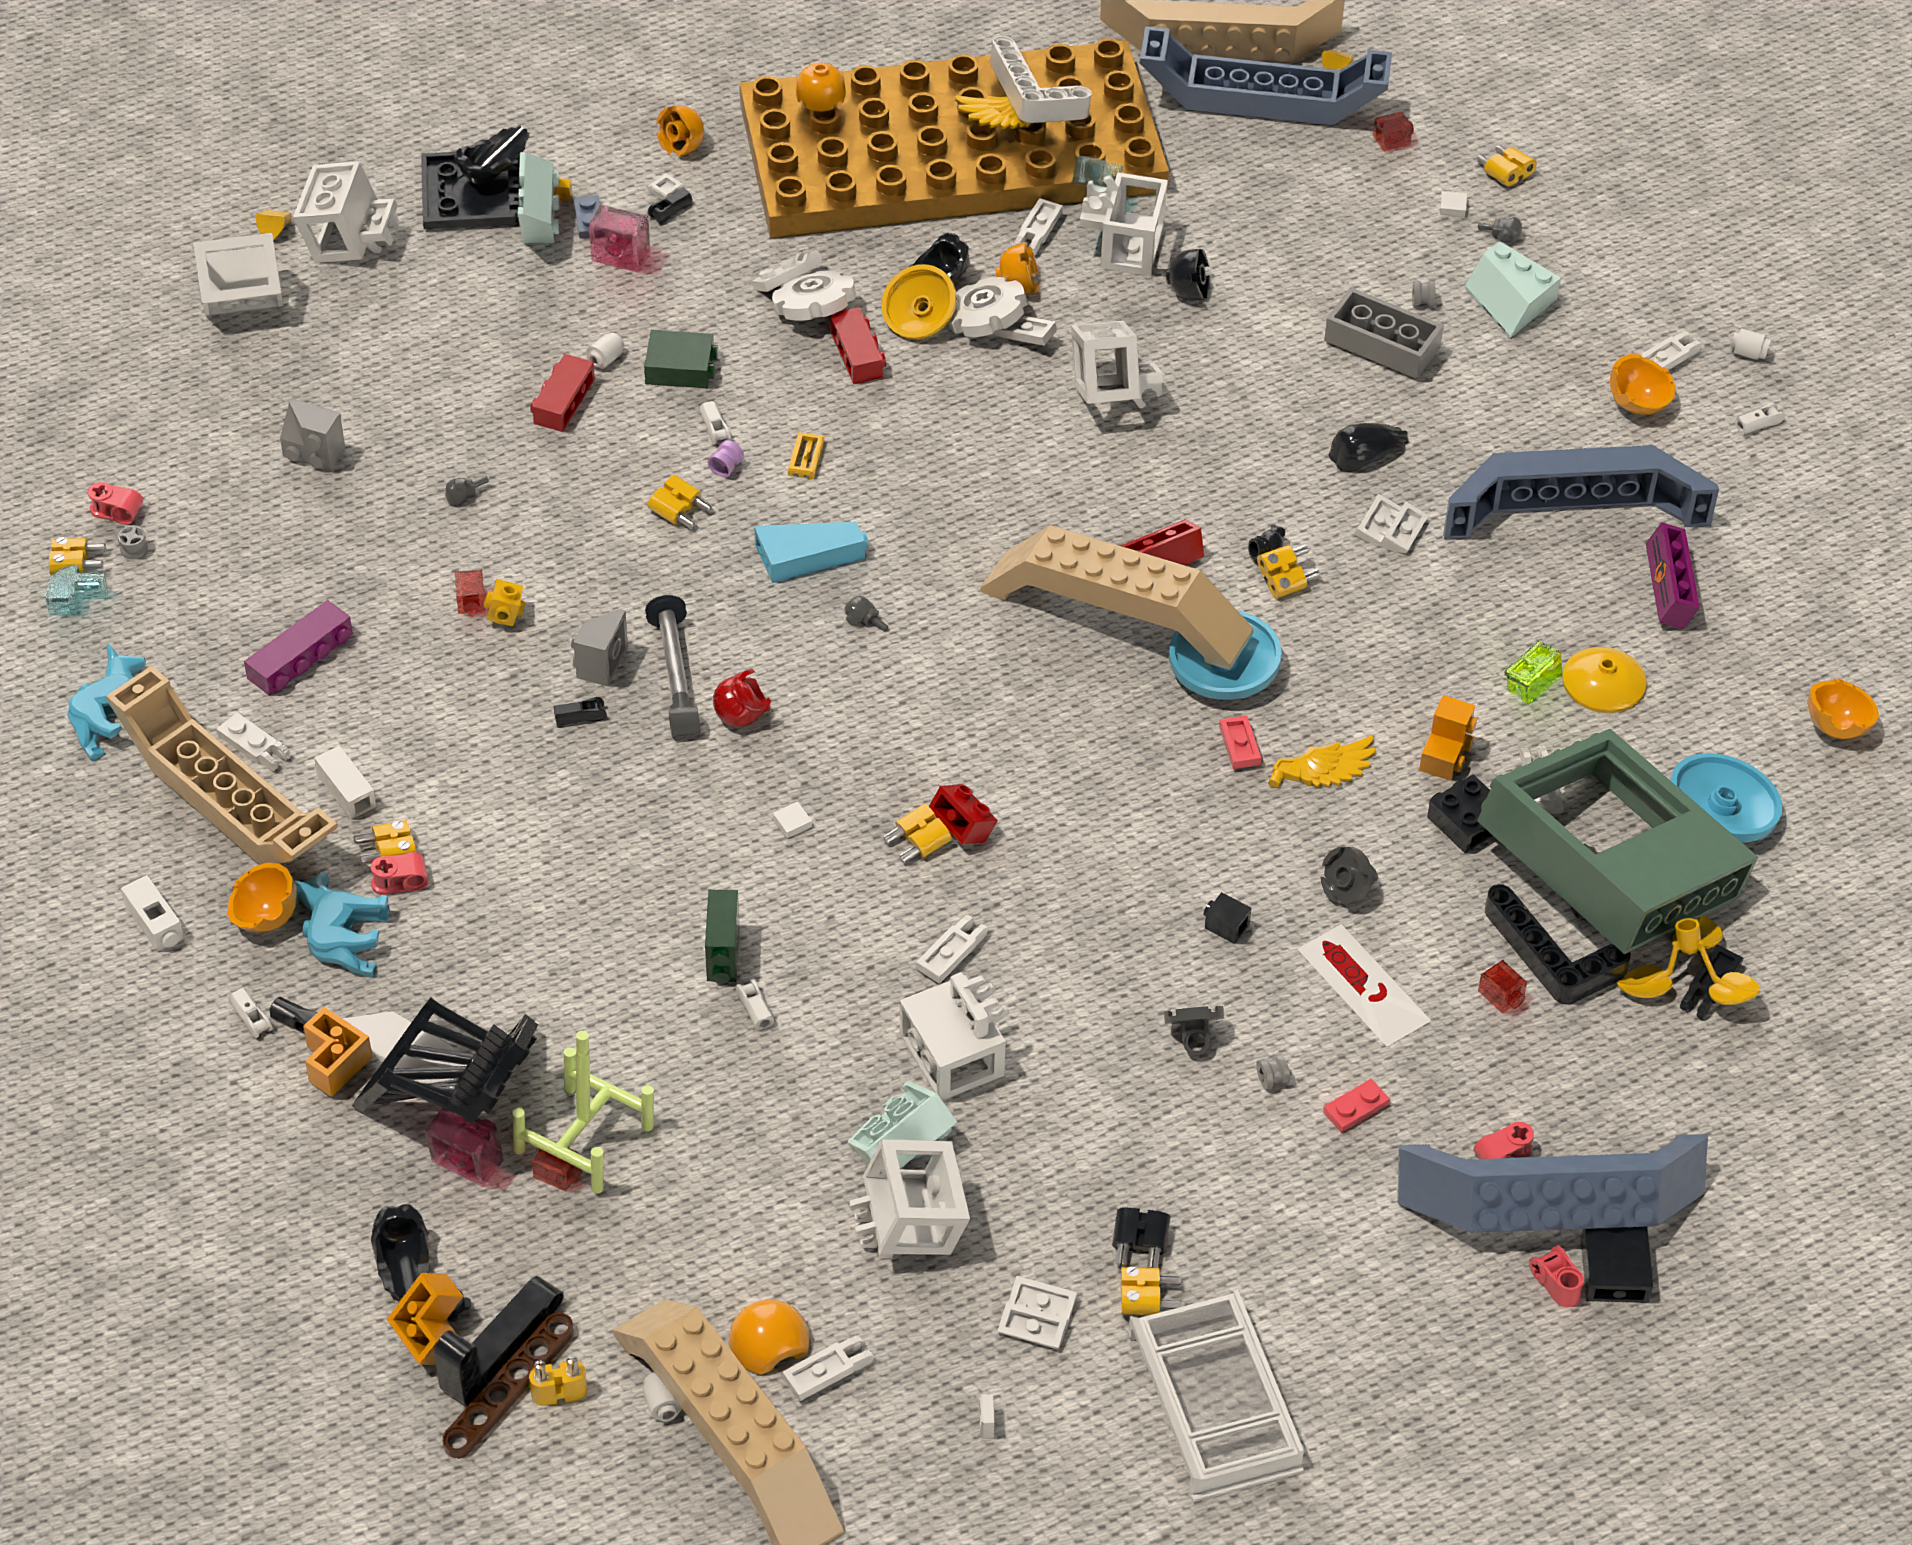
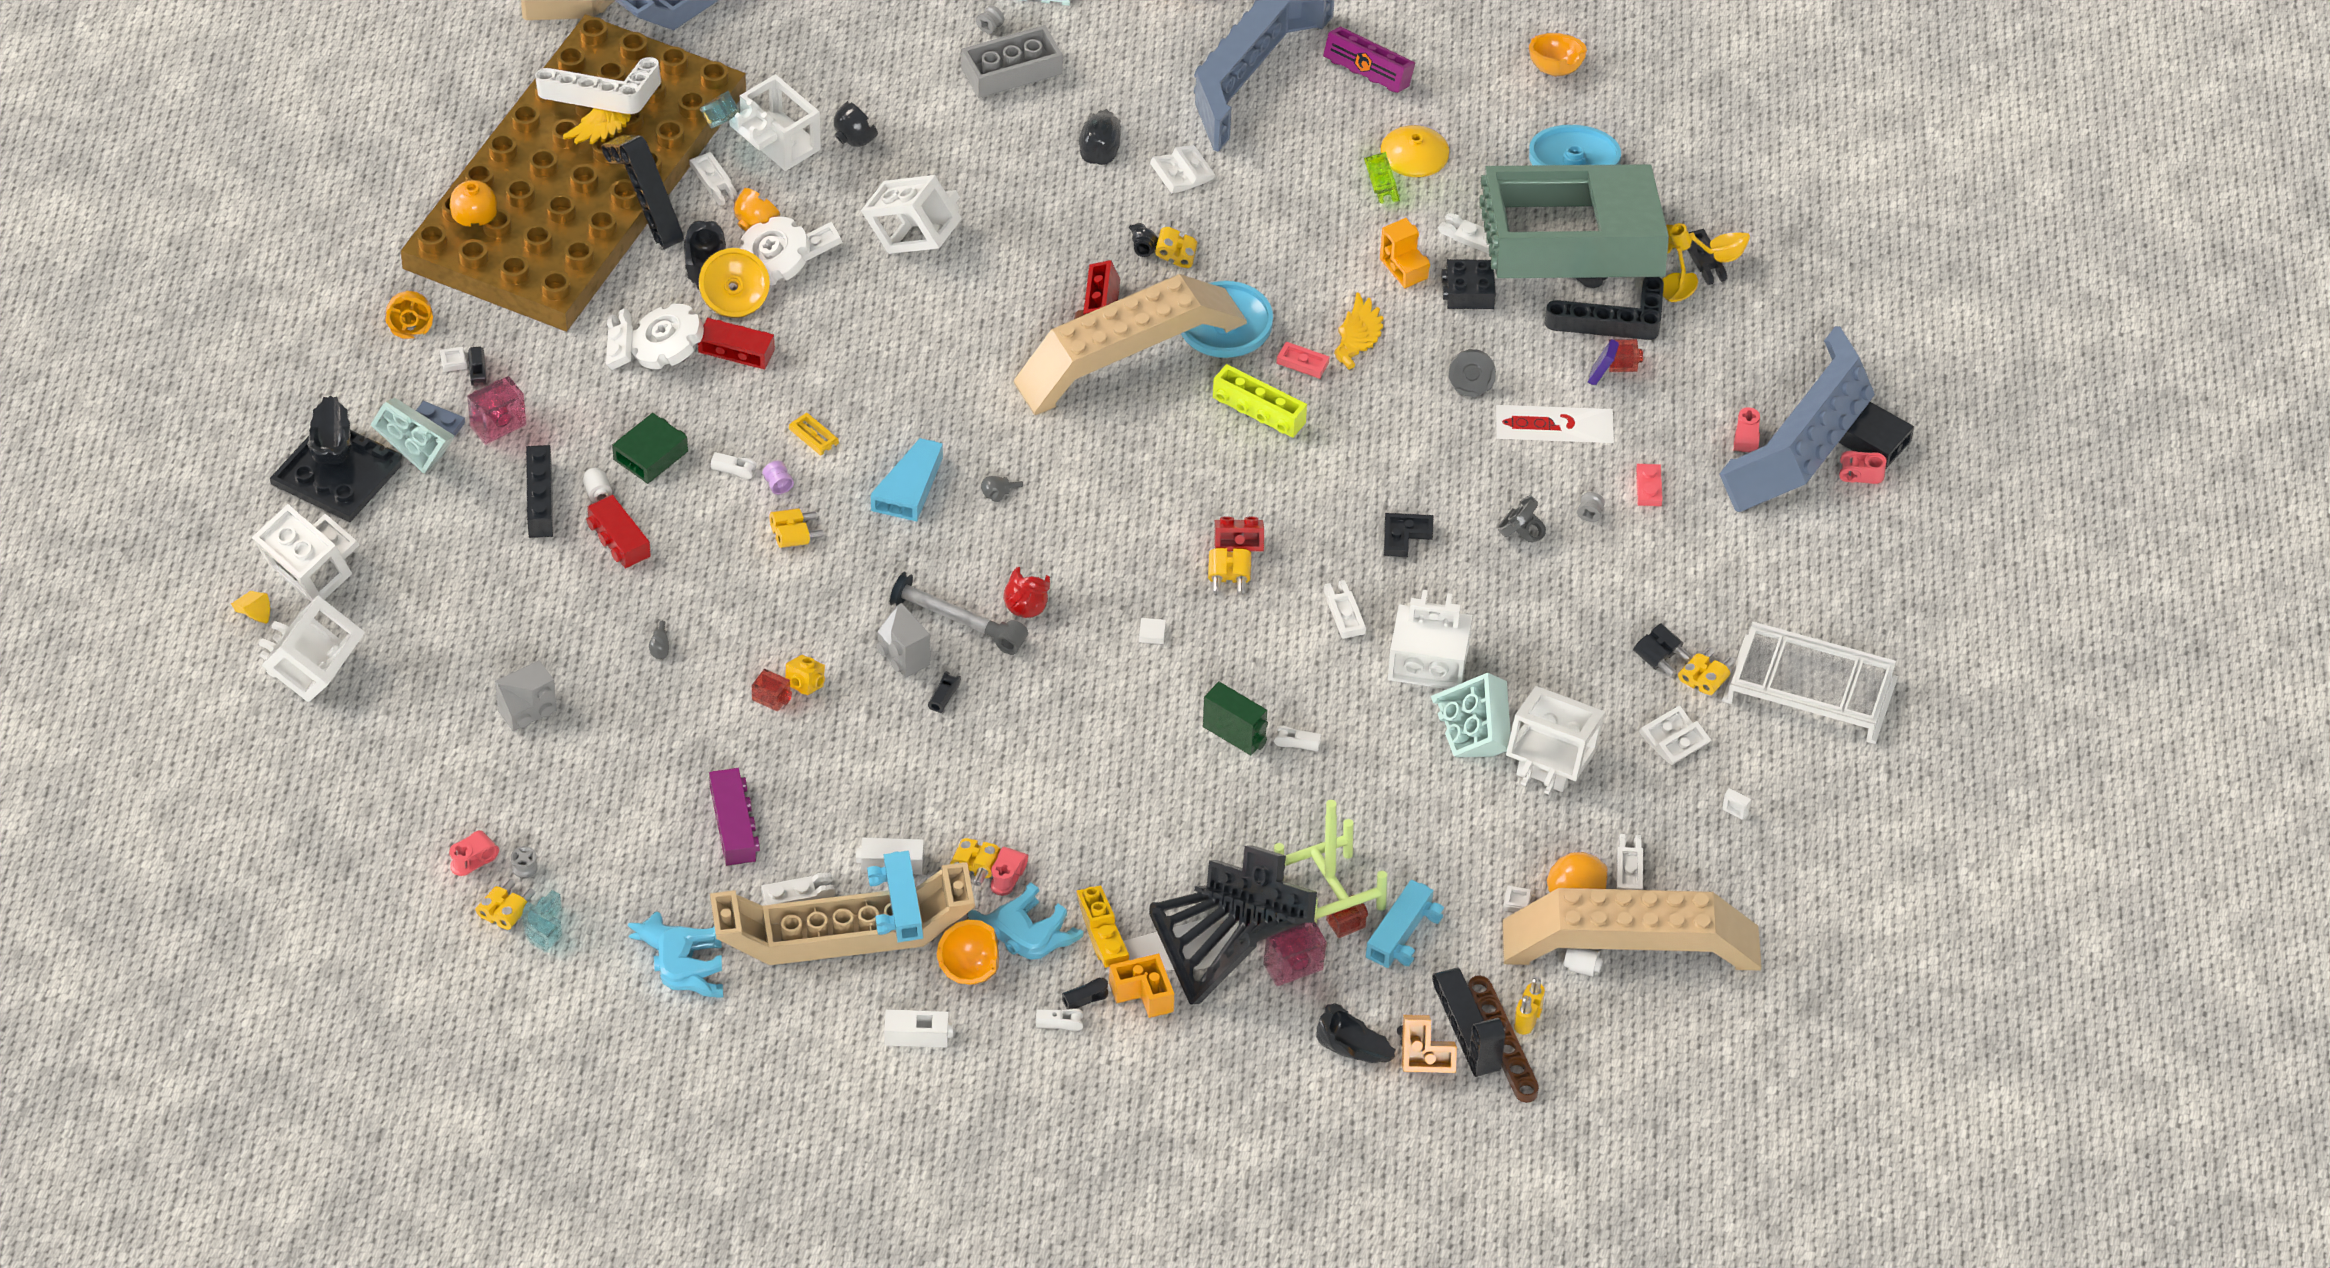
camera: 55 degrees left, 0 degrees up
(272, 804) = (903, 897): none -> medium azure brick
(388, 982) = (1101, 926): none -> yellow slope
(560, 318) = (539, 491): none -> black brick
(584, 1215) = (1400, 922): none -> medium azure brick
(704, 1296) = (1516, 898): none -> white tile
(953, 177) = (648, 186): none -> black beam
(1096, 934) = (1401, 528): none -> black plate
(1147, 736) = (1259, 400): none -> neon yellow brick
(1227, 917) = (1447, 454): black brick -> none
(1466, 971) = (1603, 362): none -> dark purple tile

